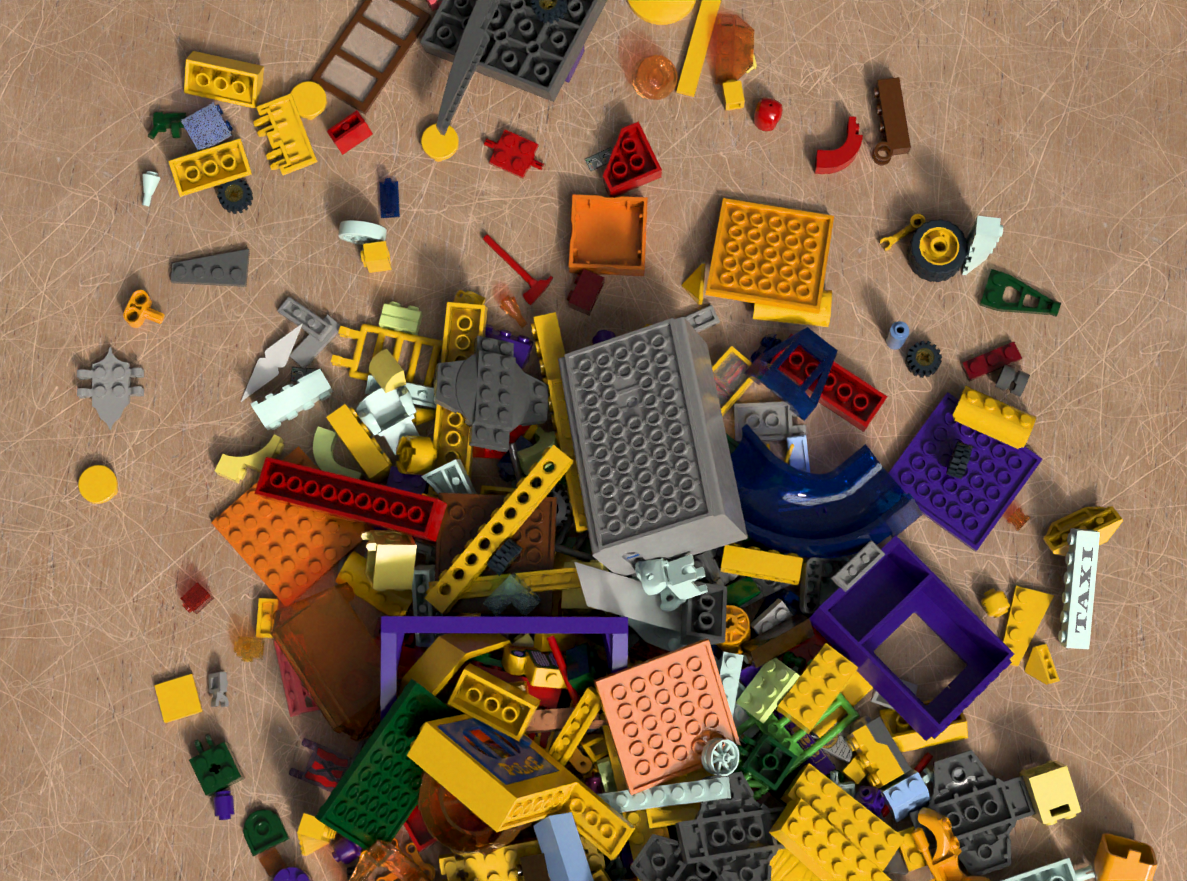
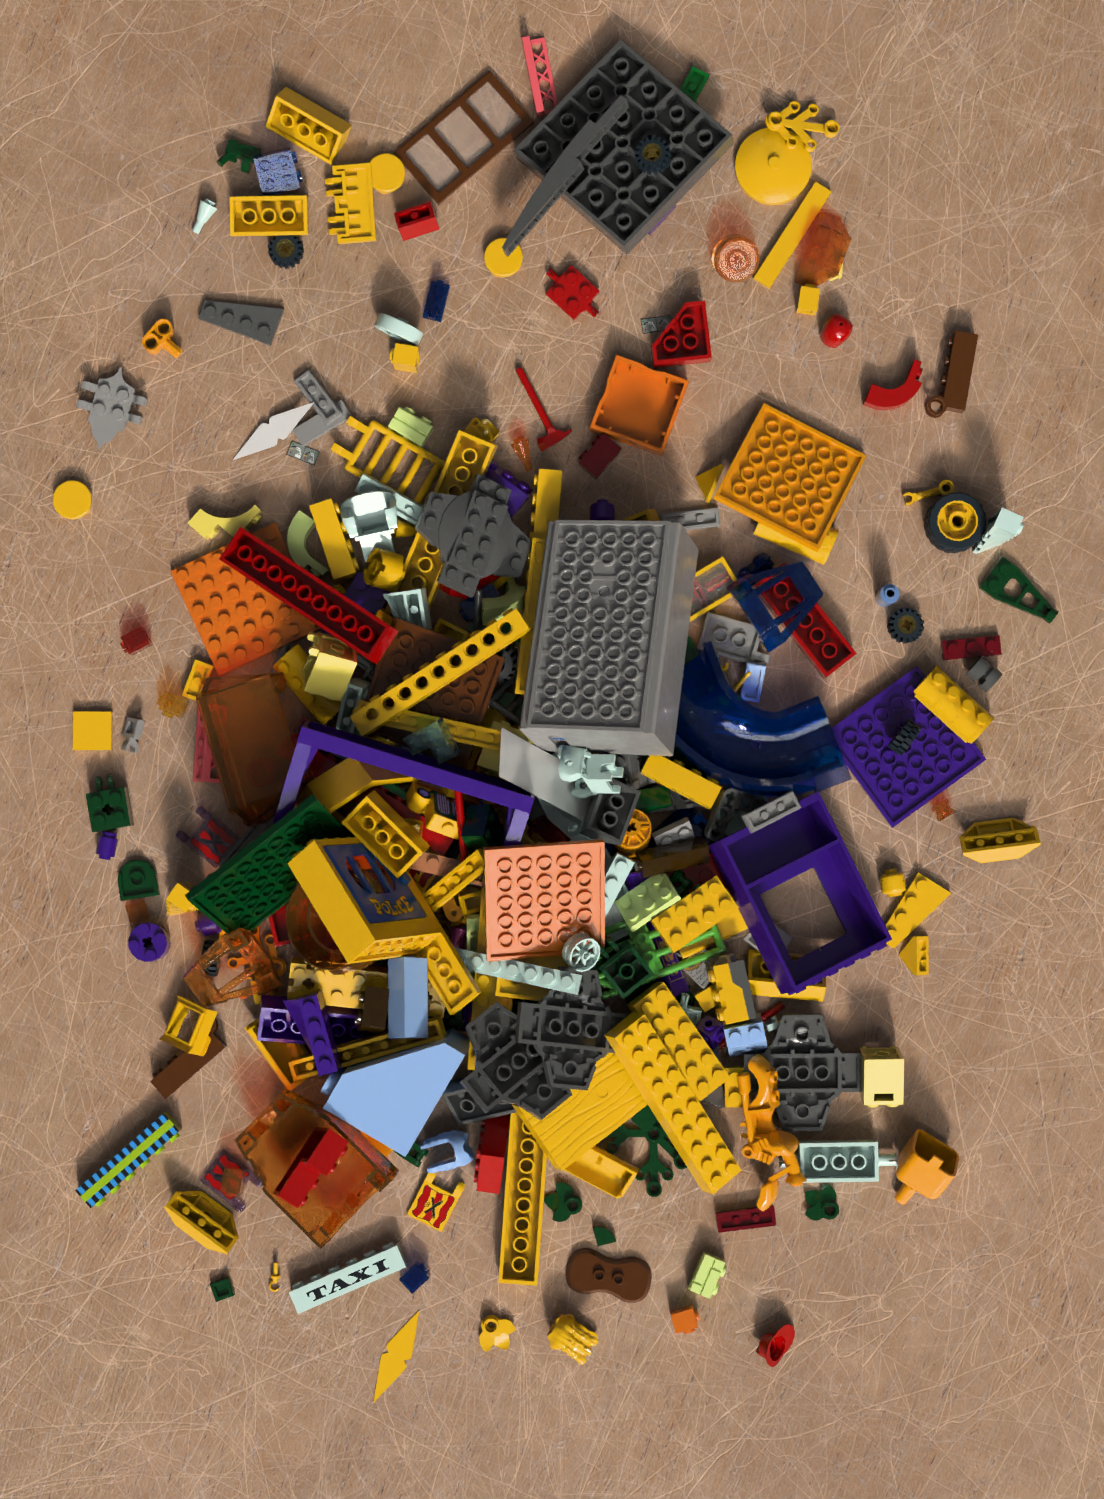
camera: 15 degrees right, 10 degrees up
(292, 400) = (283, 475): light aqua wedge -> none
(387, 371) = (381, 477): light yellow brick -> none
(504, 556) = (437, 700): black wheel -> none
(1079, 588) = (976, 895): light aqua brick -> none

